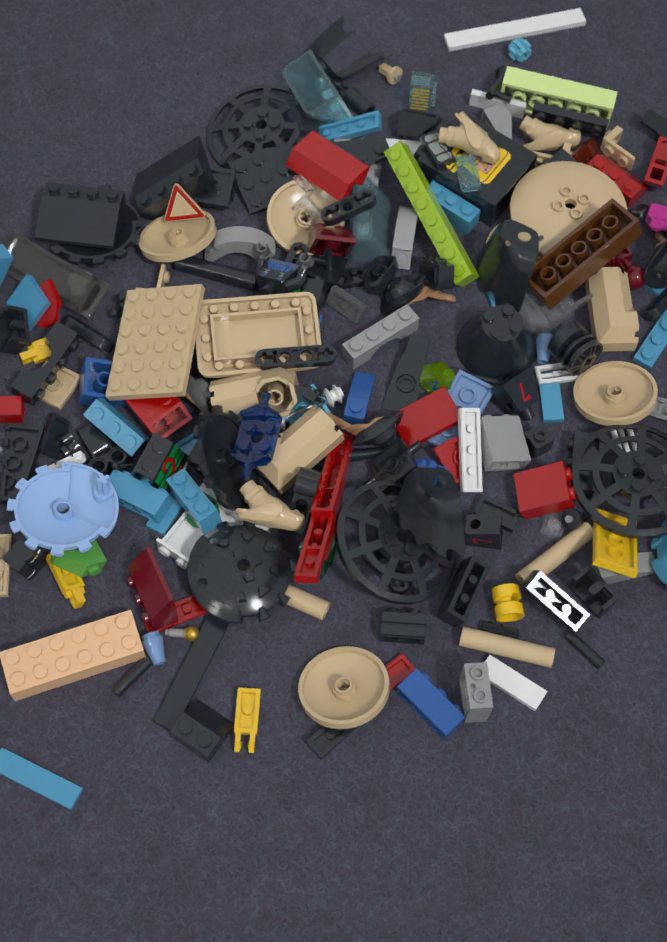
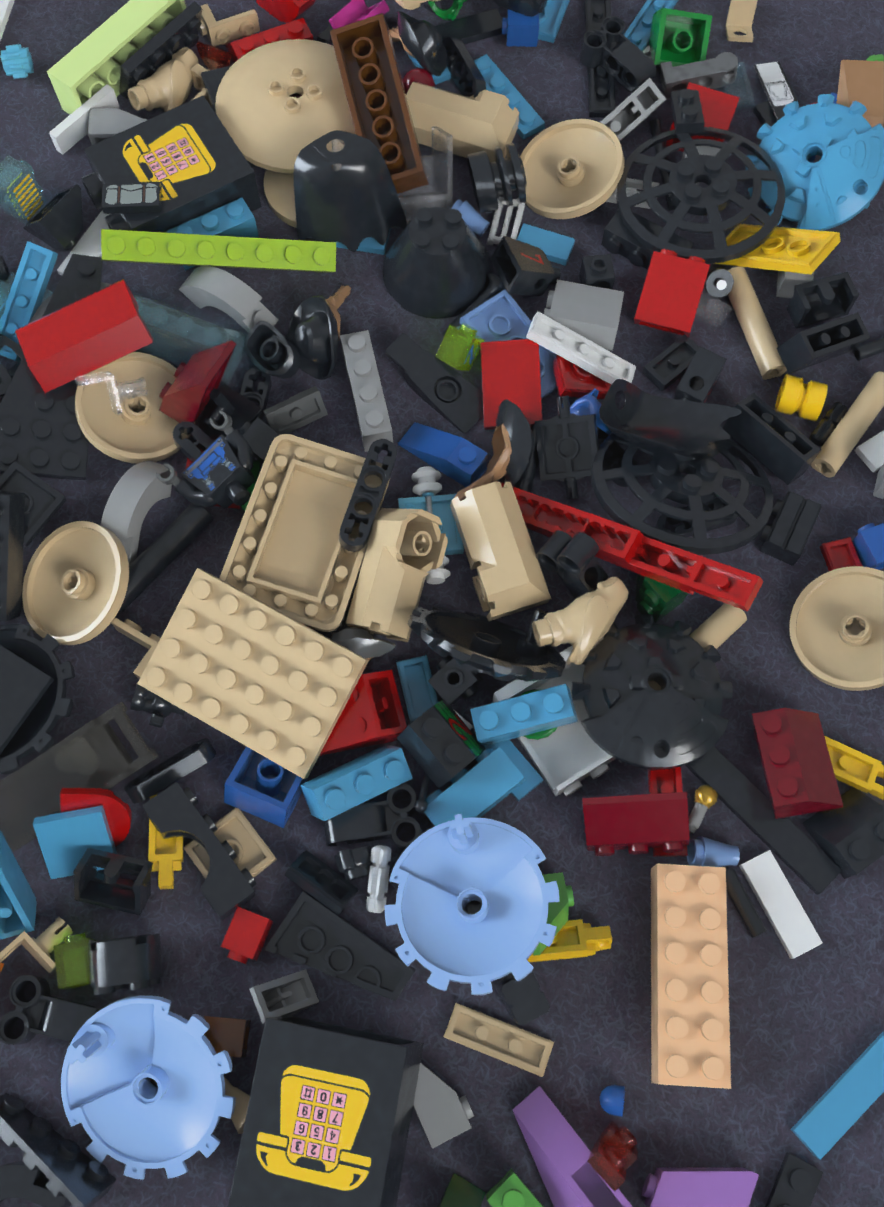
camera: 65 degrees left, 5 degrees up
(139, 700) = (780, 904): none -> white tile
(182, 206) = (35, 555): piece -> none
(231, 674) = (796, 762): none -> dark red slope
(255, 422) = (449, 583): clear blue plate -> none
(311, 394) = (431, 498): black plate -> none
(350, 200) = (159, 324): black beam -> none
(438, 272) = (310, 268): black window -> none
(467, 173) = (190, 178): clear light blue tile -> none
(470, 139) = (144, 149): tan animal -> none
(493, 91) = (43, 95): black piece -> none

